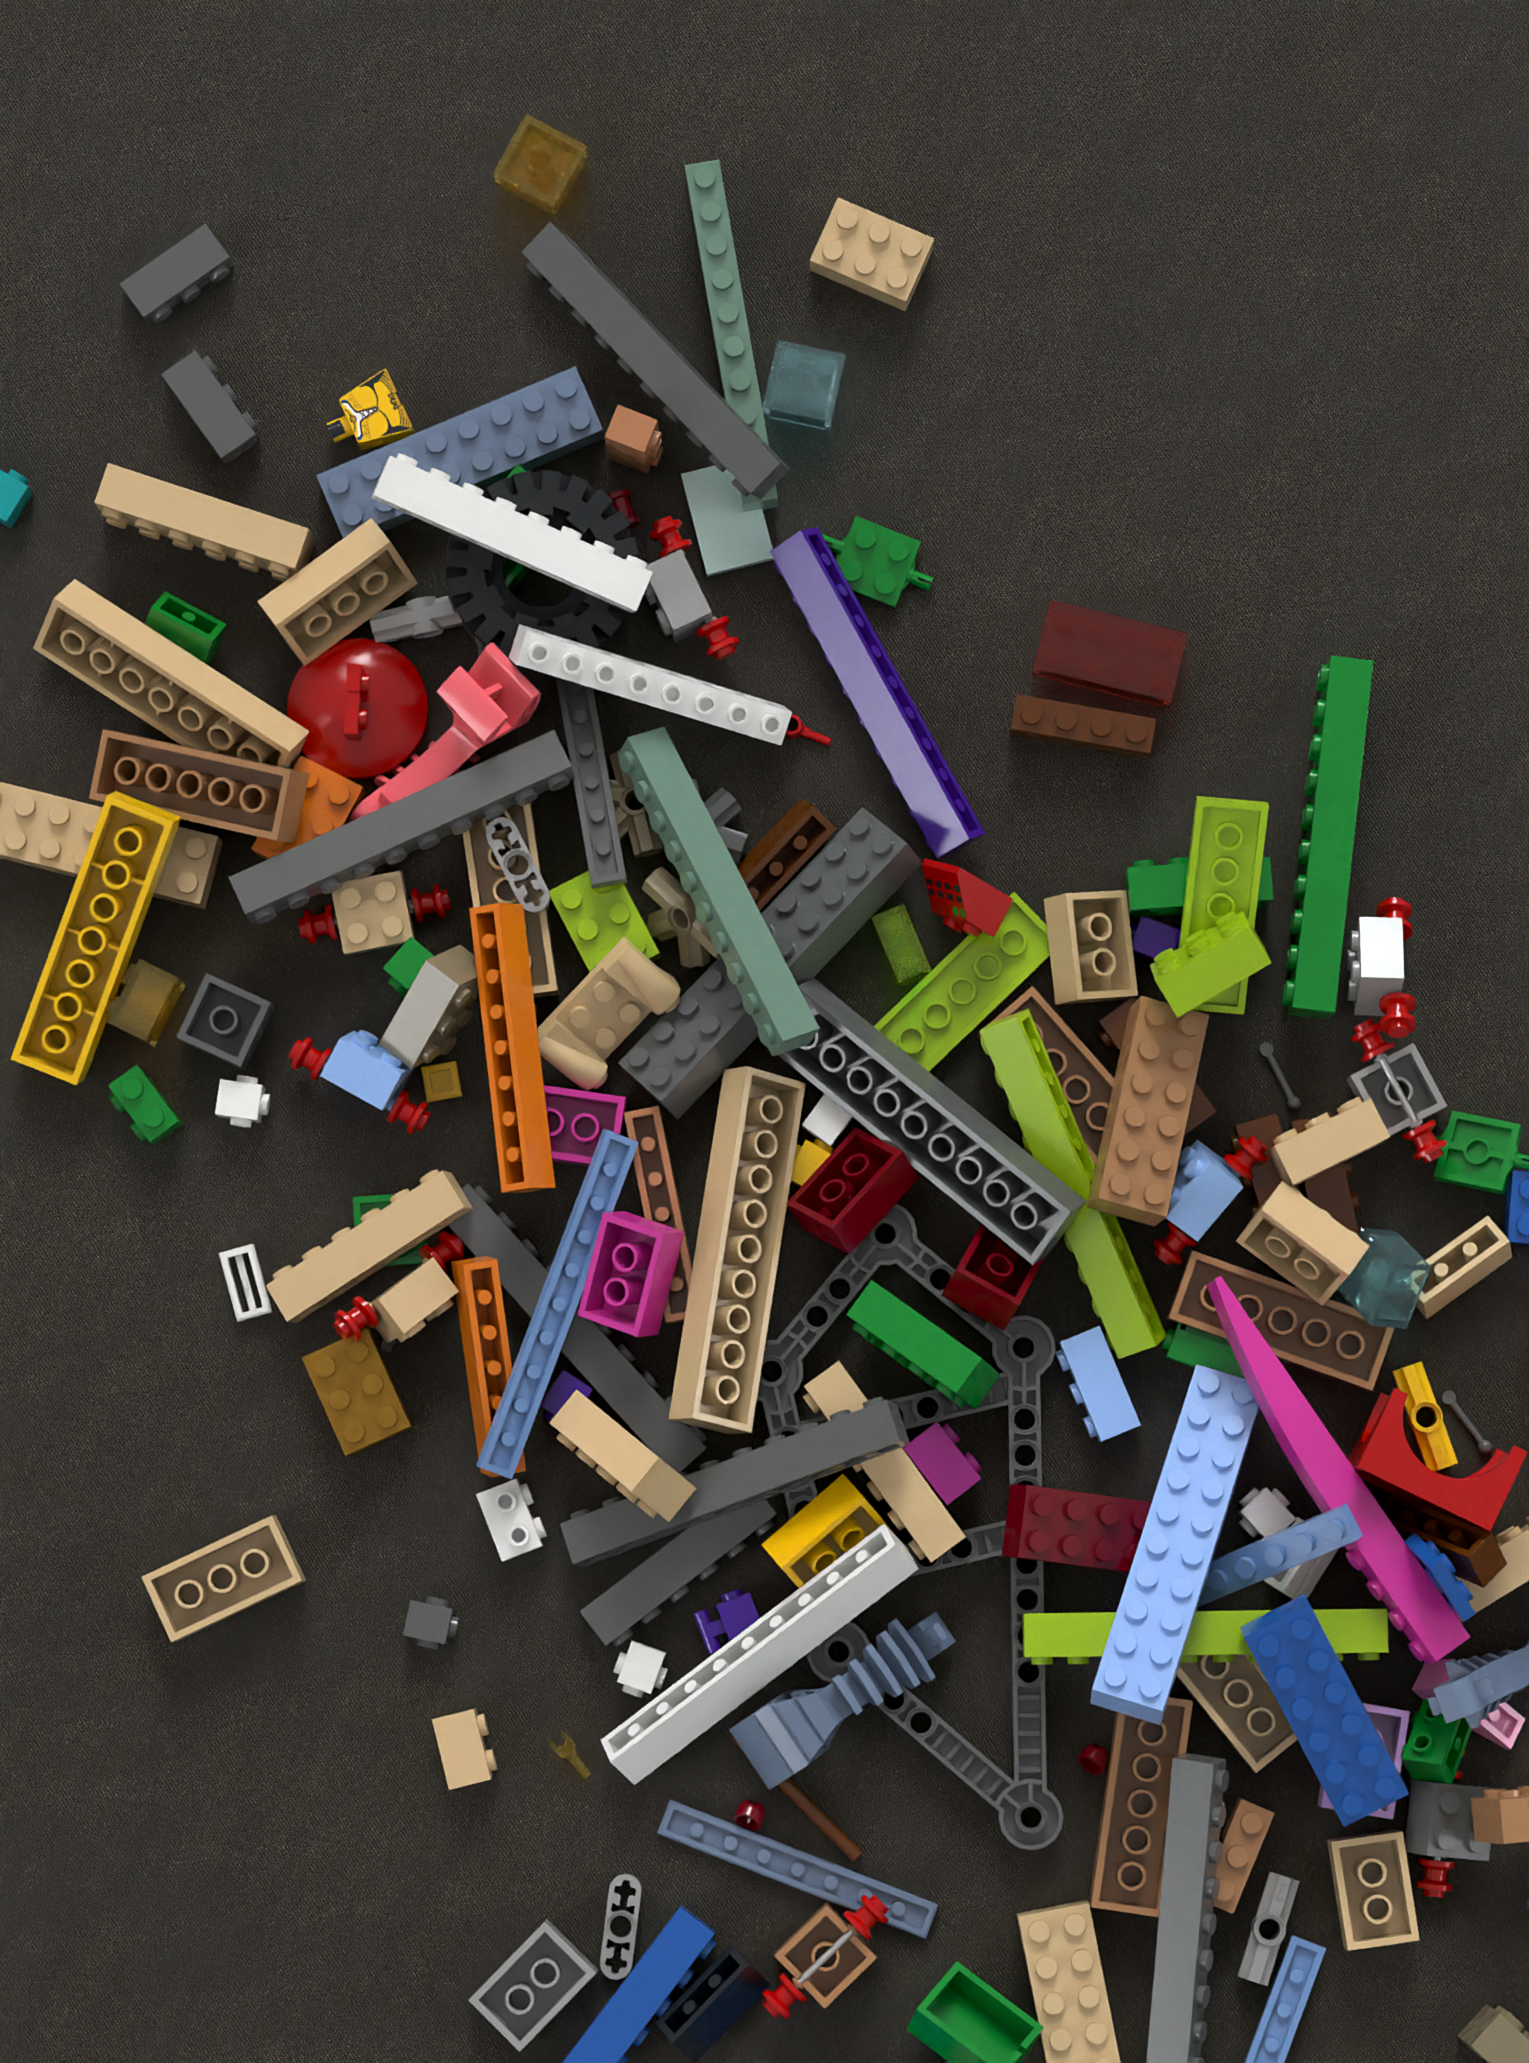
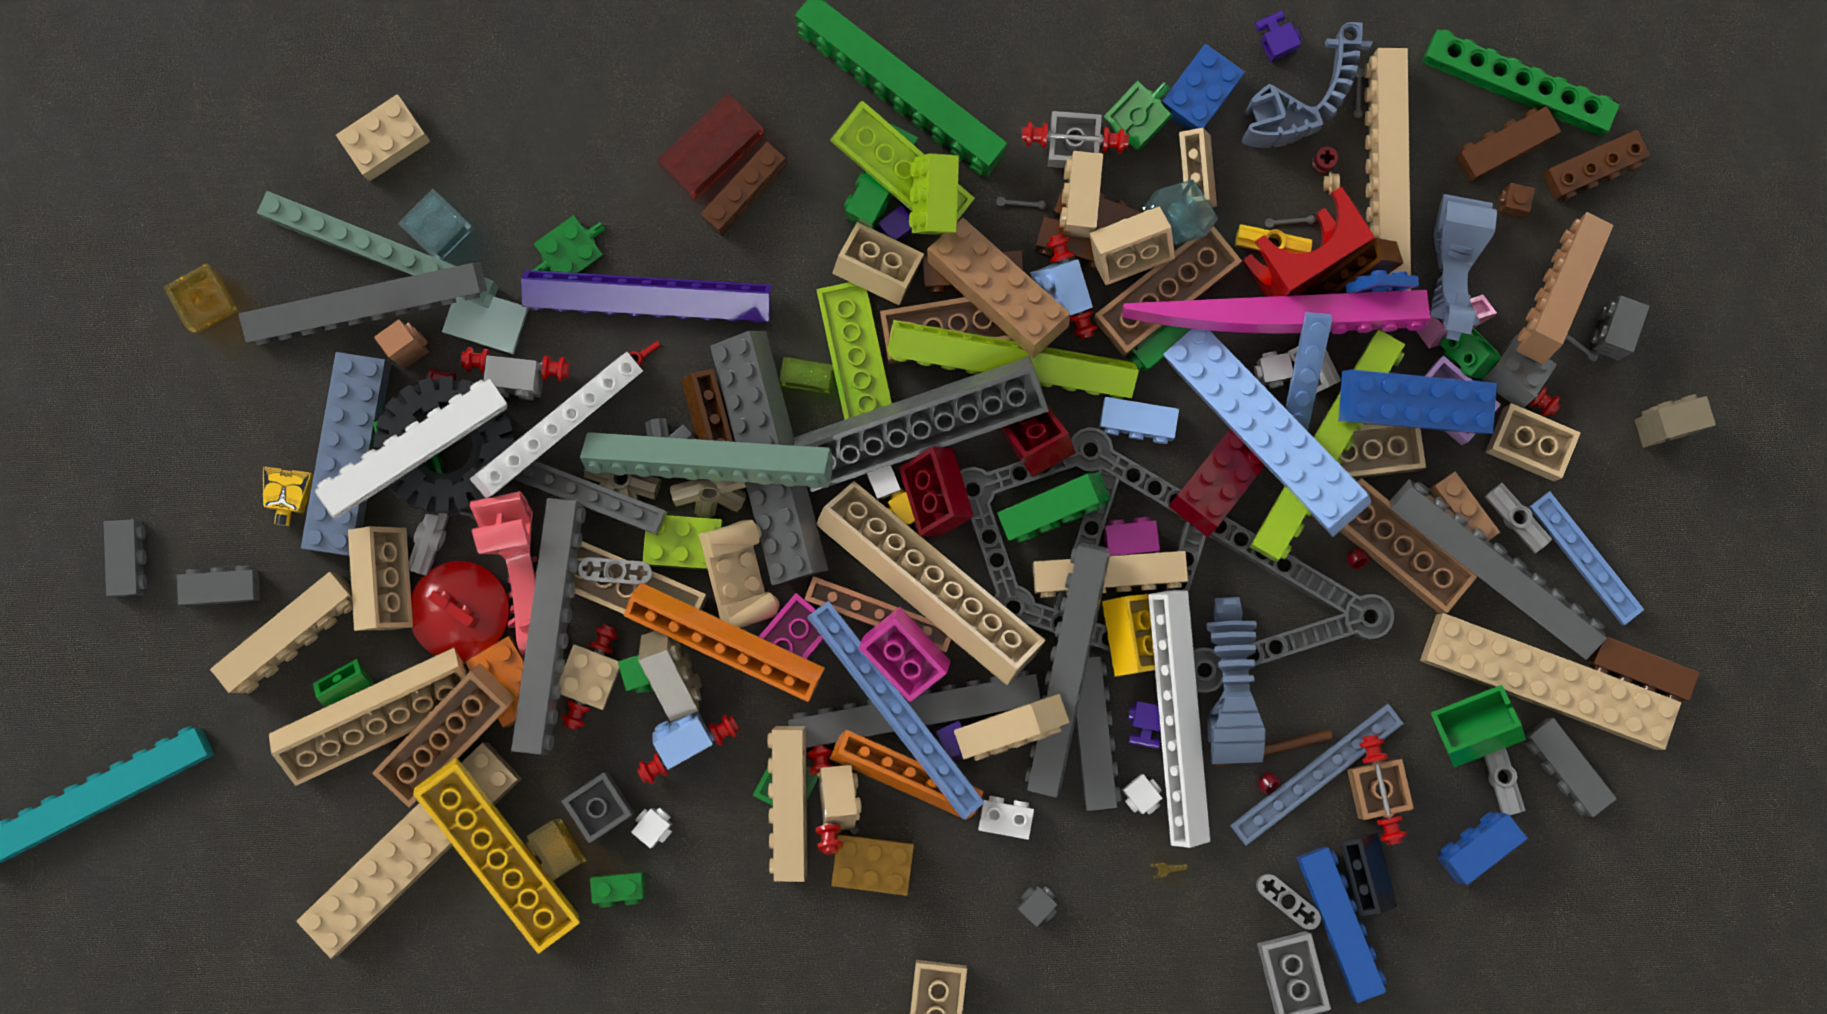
camera: 65 degrees left, 0 degrees up
(253, 1310) = (784, 898): white tile -> none
(441, 1081) = (716, 698): yellow tile -> none
(464, 1748) = (1126, 931): tan brick -> none
(964, 899) = (803, 319): red slope -> none
(1378, 967) = (997, 103): brick -> none

